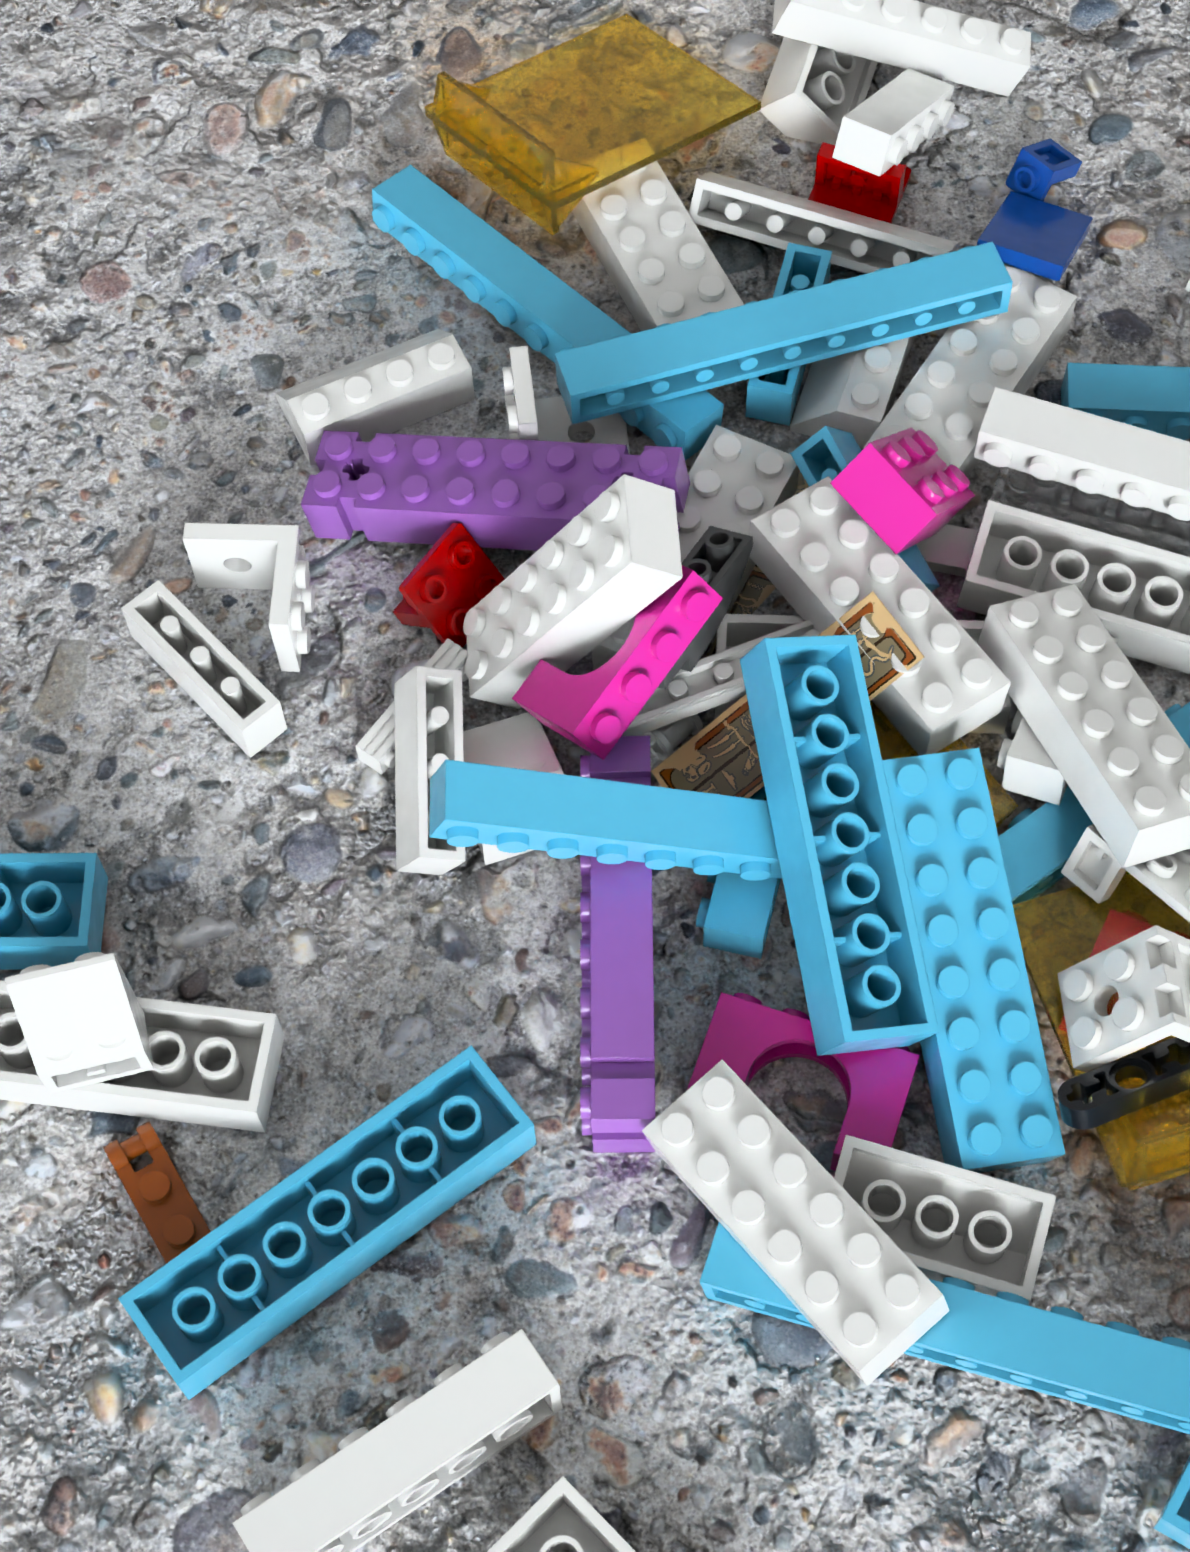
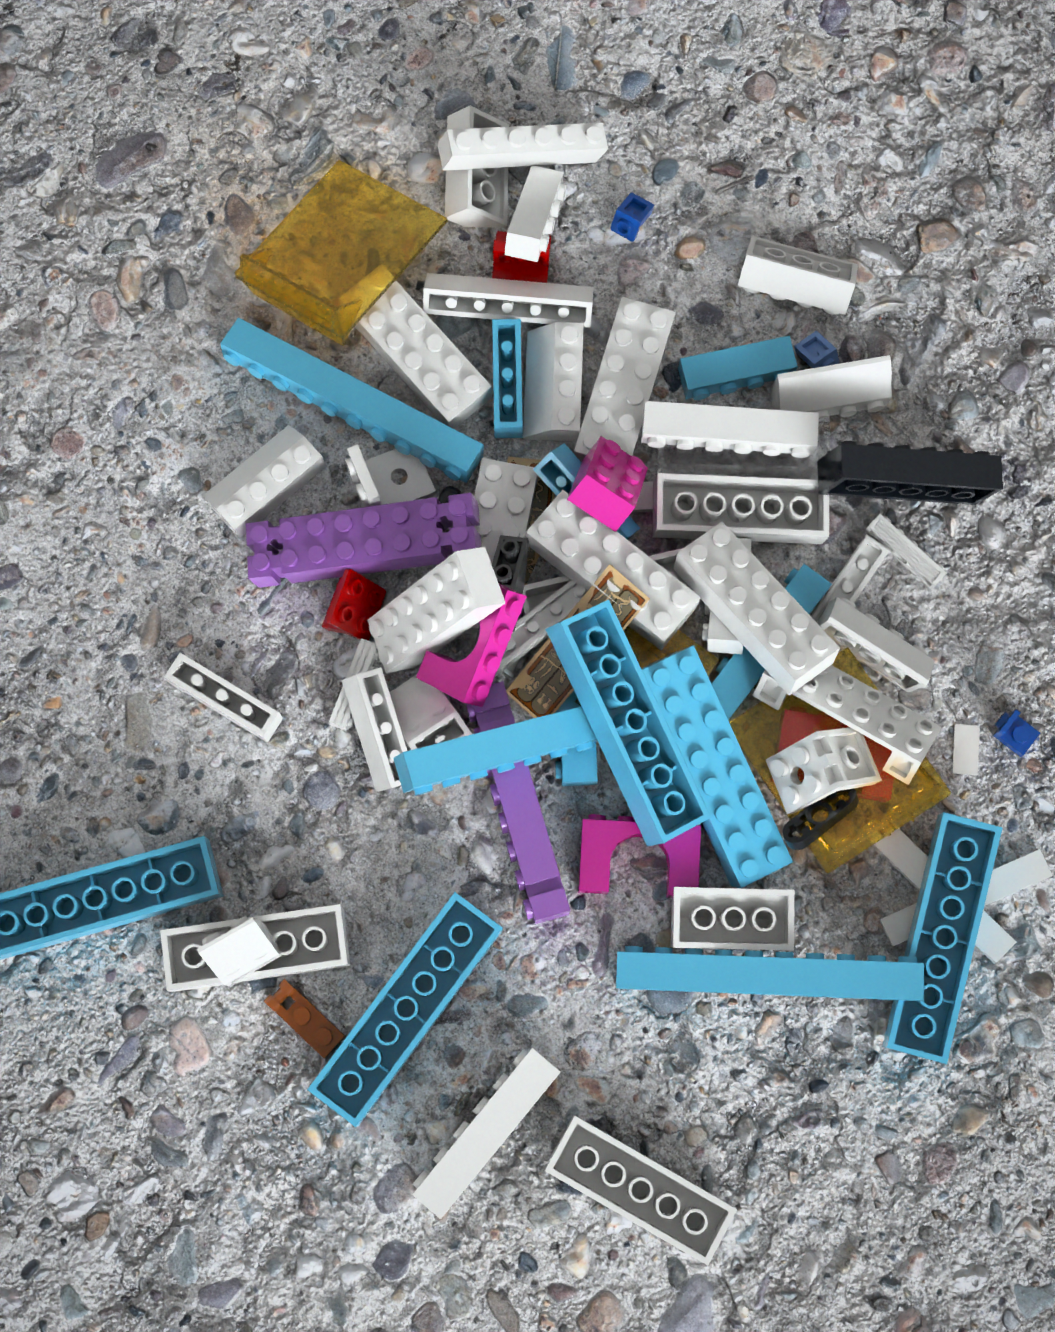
camera: 20 degrees left, 15 degrees up
(259, 559) = (235, 618): white bracket -> none
(782, 332) = (507, 389): medium azure brick -> none
(796, 1222) = (659, 946): white brick -> none
(1036, 235) = (639, 271): blue tile -> none

